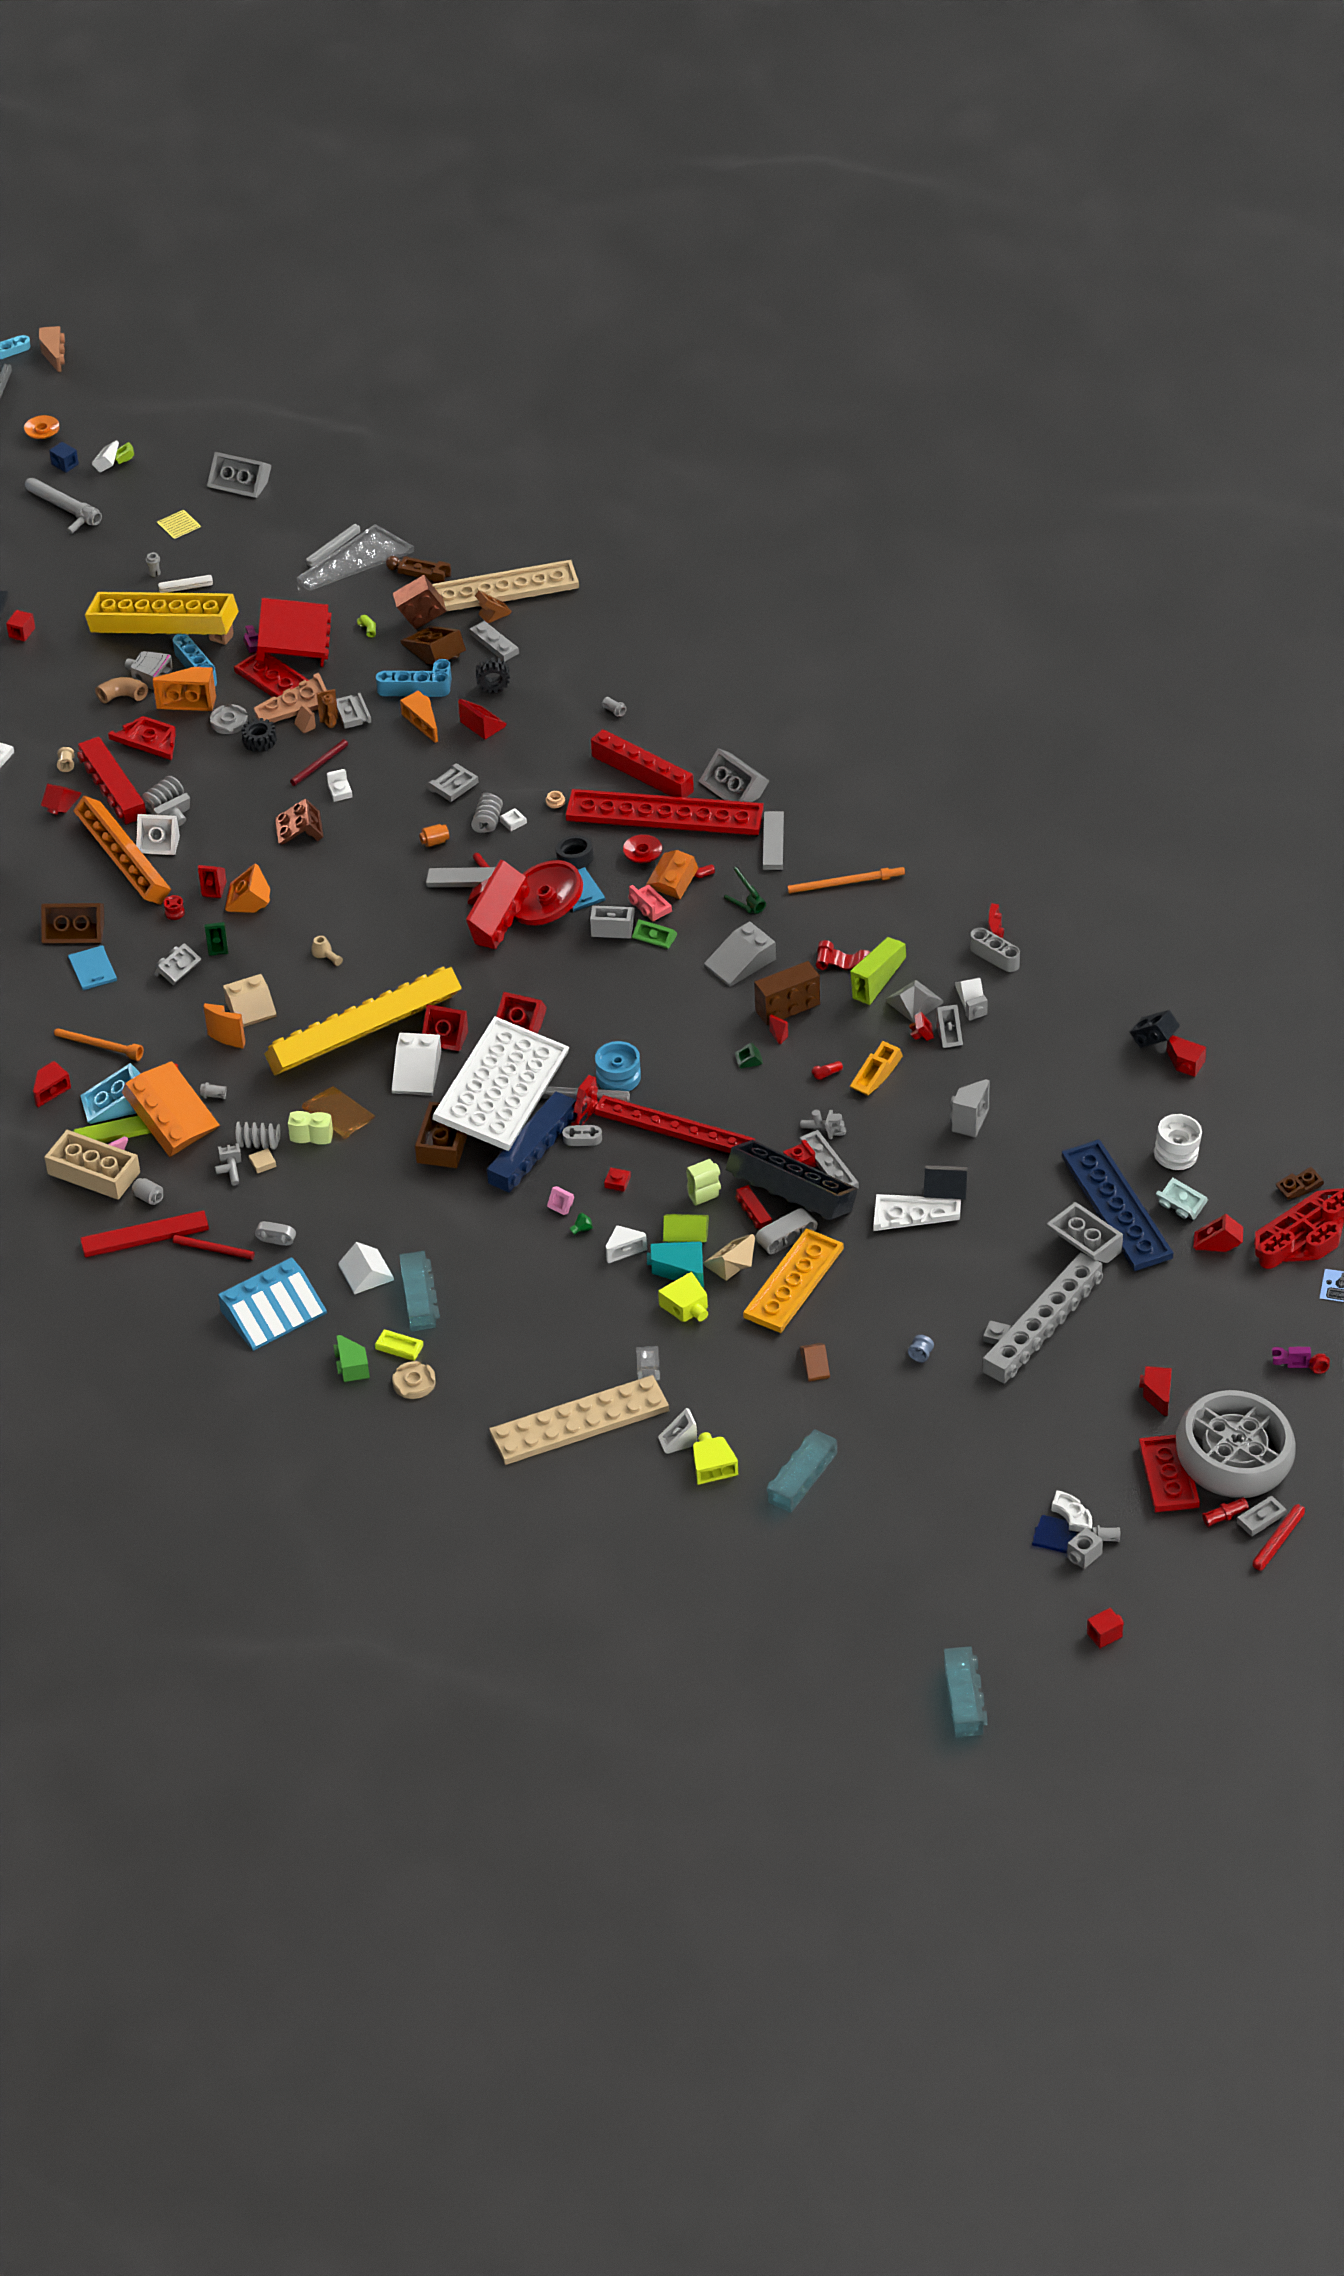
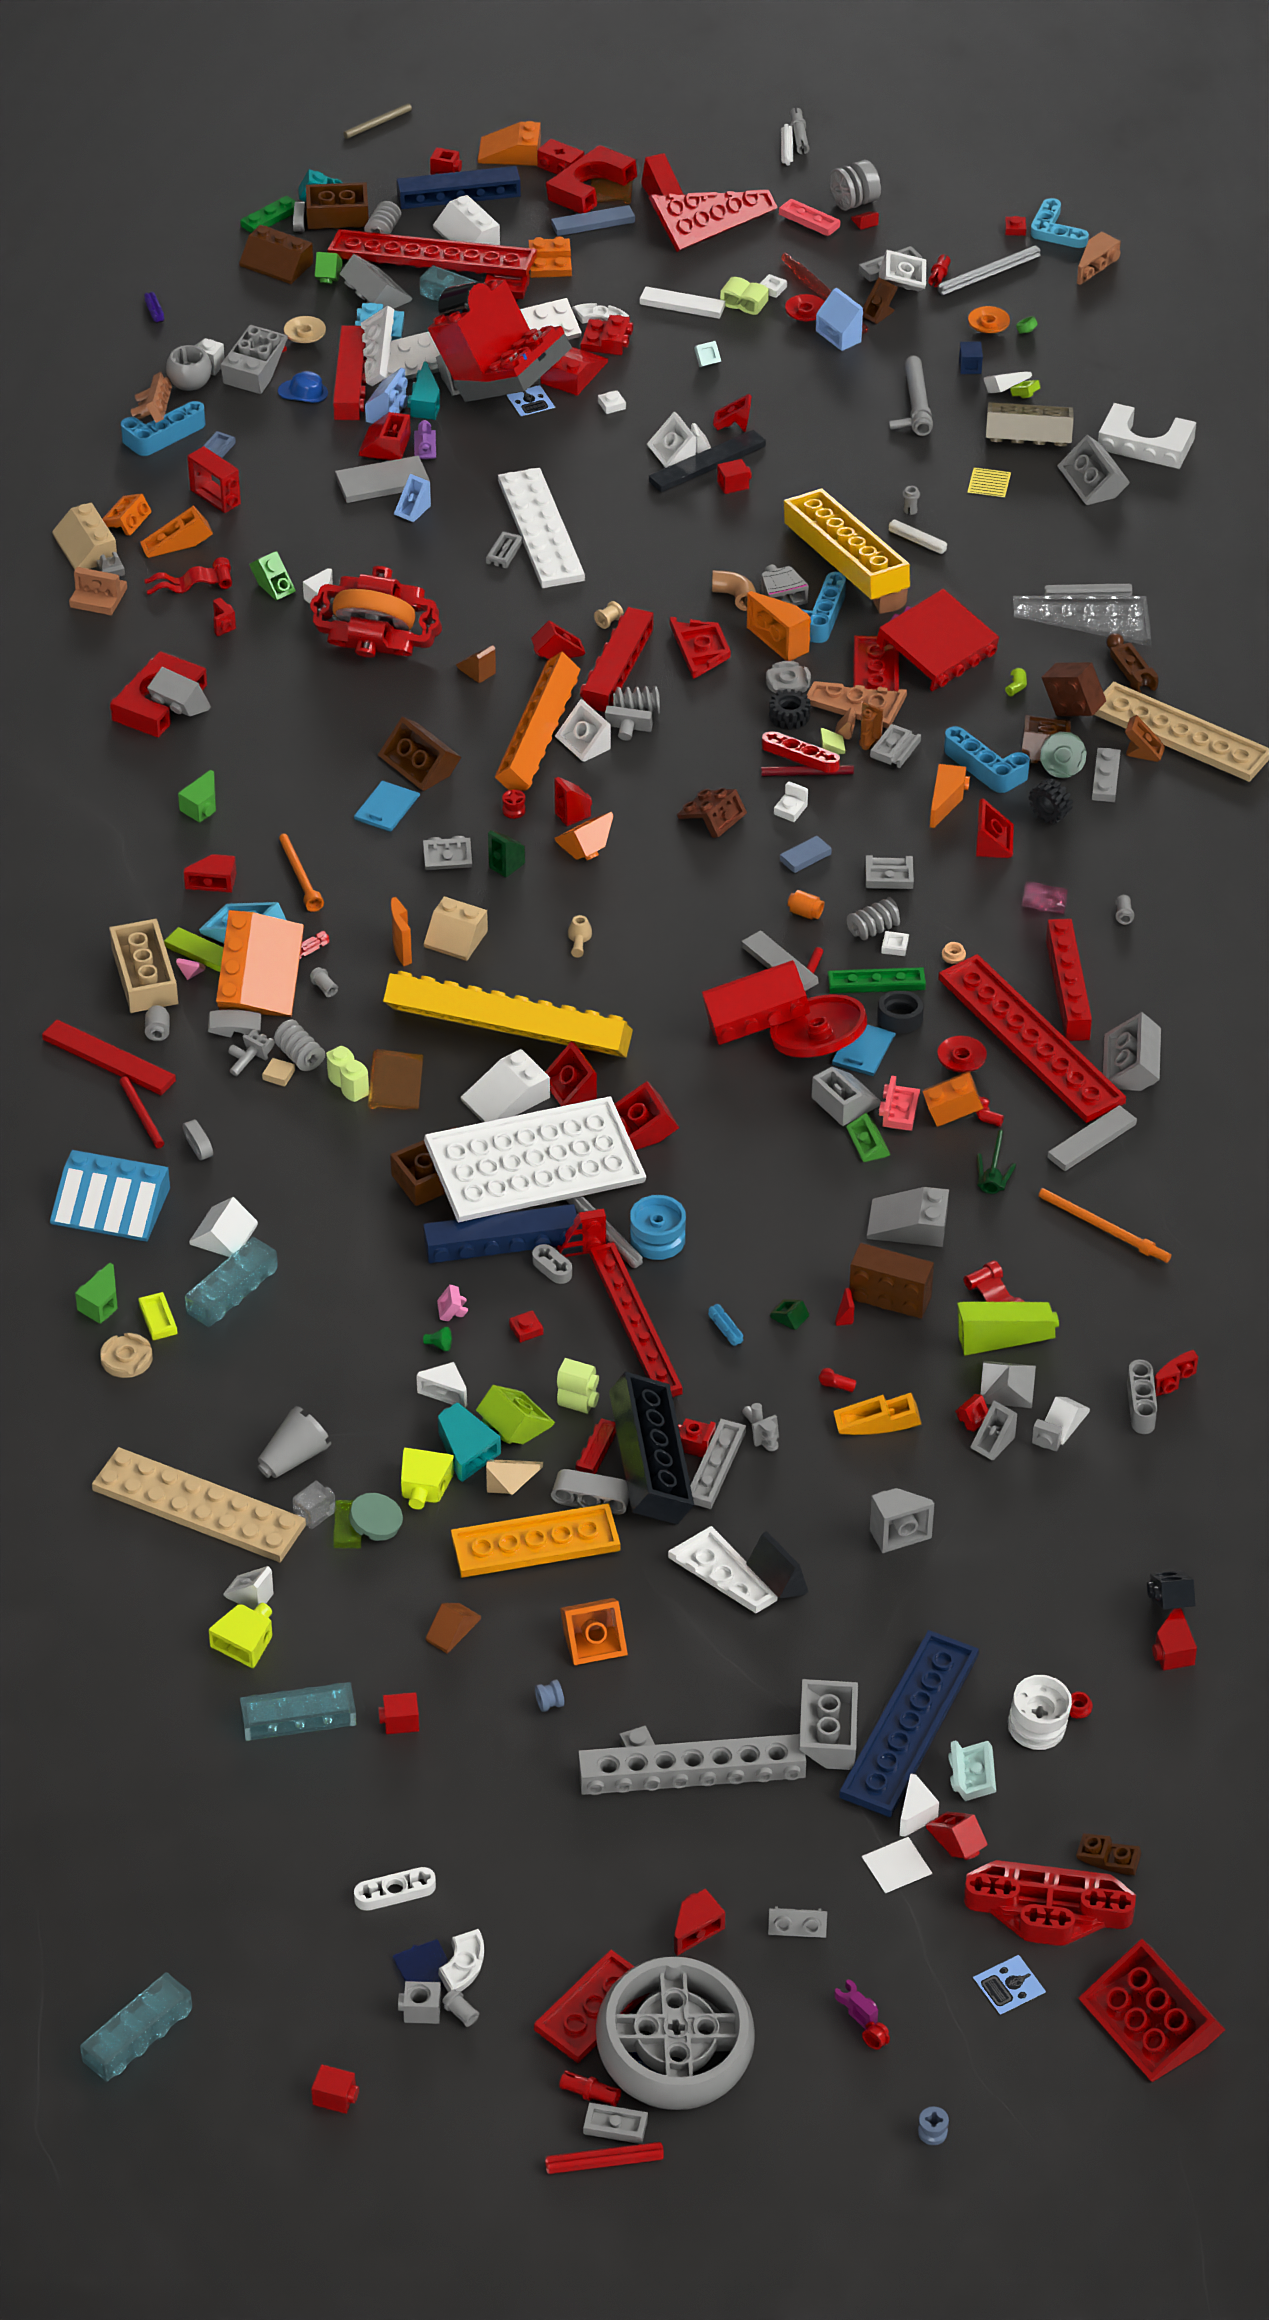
camera: 45 degrees right, 0 degrees up
(27, 844) = (479, 665): none -> dark orange slope
(68, 415) = (1026, 325): none -> bright green tile
(157, 471) = (1029, 423): none -> slope
(192, 1154) = (227, 1021): none -> light grey slope
(263, 432) = (1163, 450): none -> white arch
(303, 753) = (800, 752): none -> red beam
(310, 737) = (832, 741): none -> yellowish green slope
(388, 809) = (805, 854): none -> sand blue tile
(462, 644) = (1063, 754): none -> sand green tile
(534, 845) = (876, 980): none -> green tile
(562, 731) = (1045, 897): none -> clear pink hips
(591, 1339) = (293, 1444): none -> light grey cone
(678, 1359) = (344, 1533): none -> clear neon green tile
(690, 1340) = (375, 1516): none -> sand green tile
(725, 1090) = (725, 1324): none -> dark azure axle
(858, 1424) = (399, 1713): none -> red brick
(894, 1296) = (594, 1631): none -> orange slope
(984, 1502) = (402, 1879): none -> white beam
(1180, 1239) = (918, 1808): none -> white slope
(1205, 1345) = (797, 1922): none -> light grey hinge
(1207, 1278) = (896, 1865): none -> white sticker

